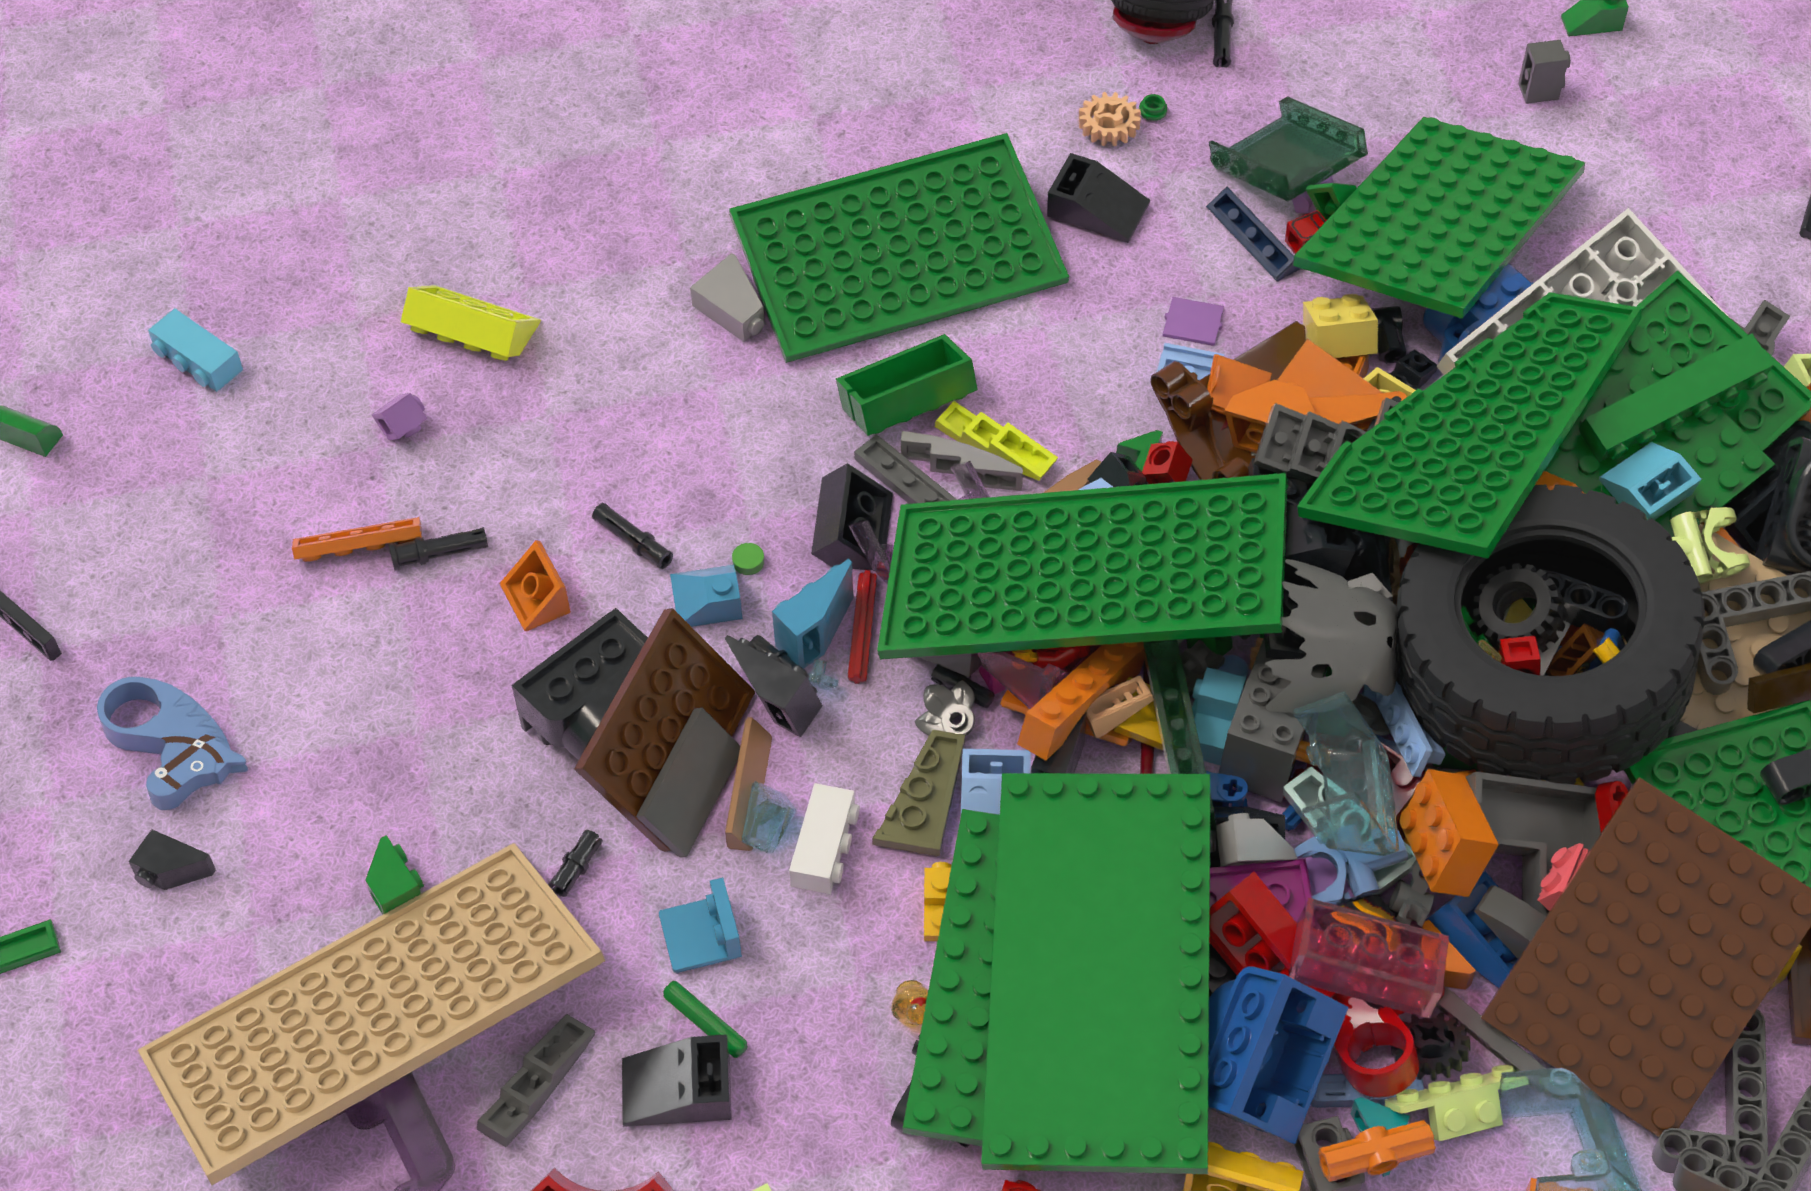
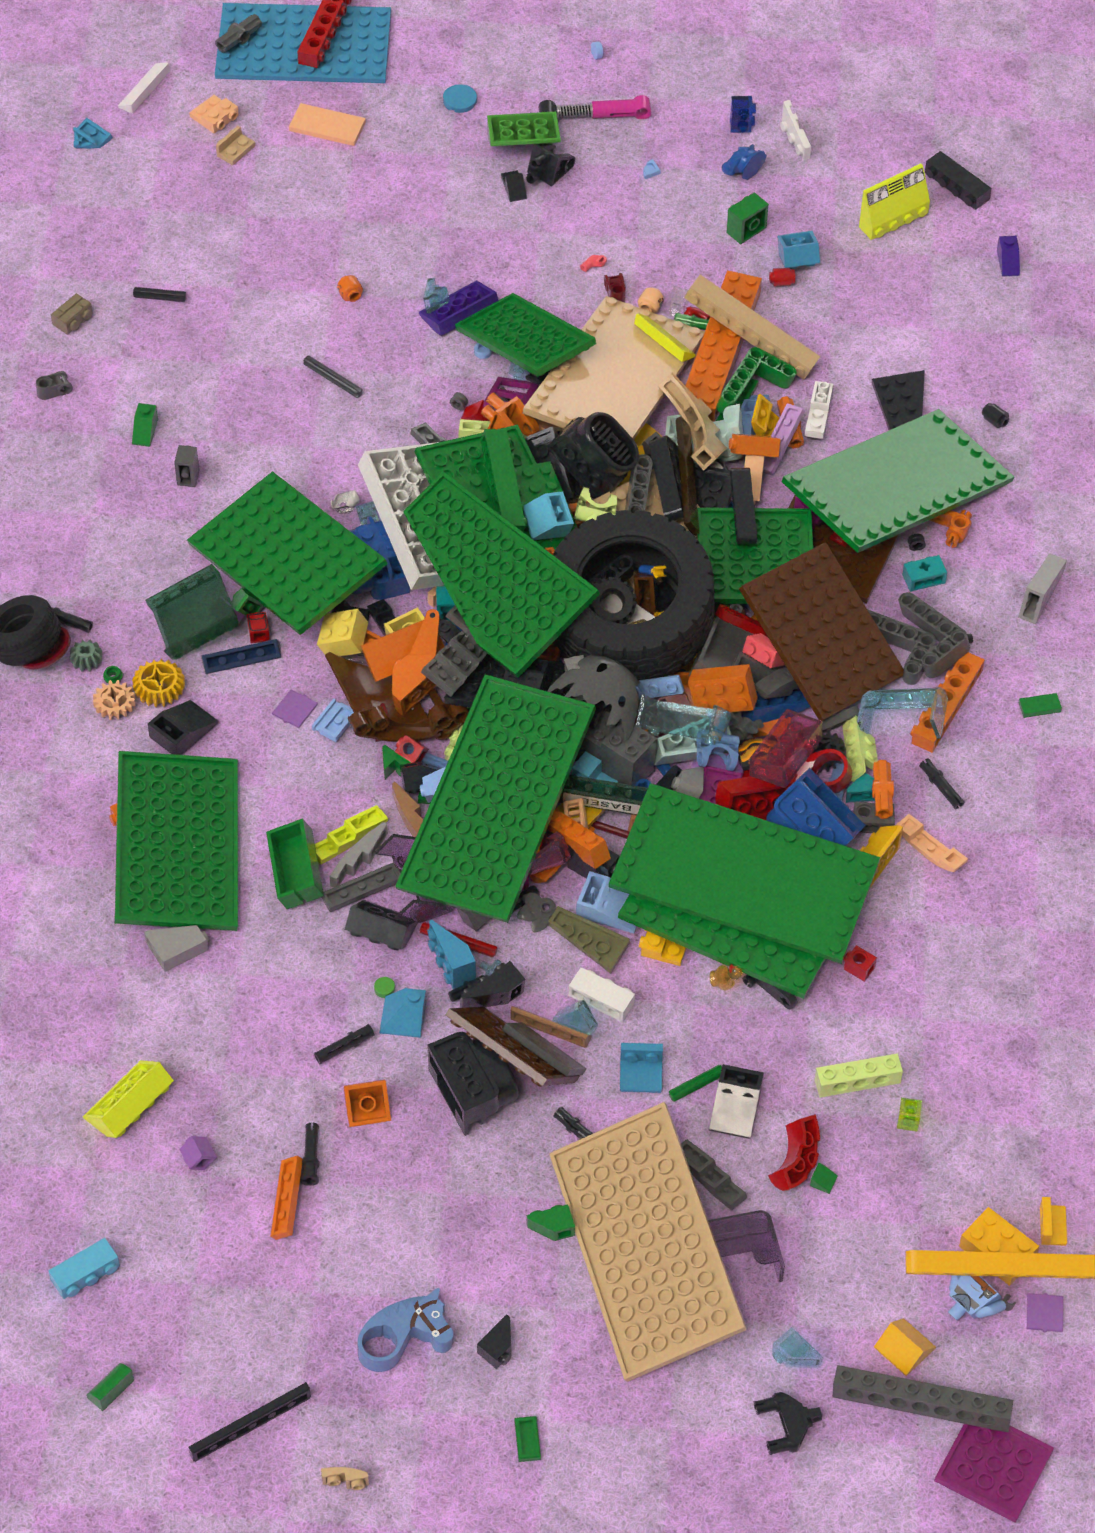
camera: 75 degrees left, 0 degrees up
(1159, 163) = (170, 679): none -> yellow gear
(1169, 69) = (86, 655): none -> sand green gear
(1230, 378) = (367, 695): orange piece -> none
(1521, 654) = (645, 610): red brick -> none

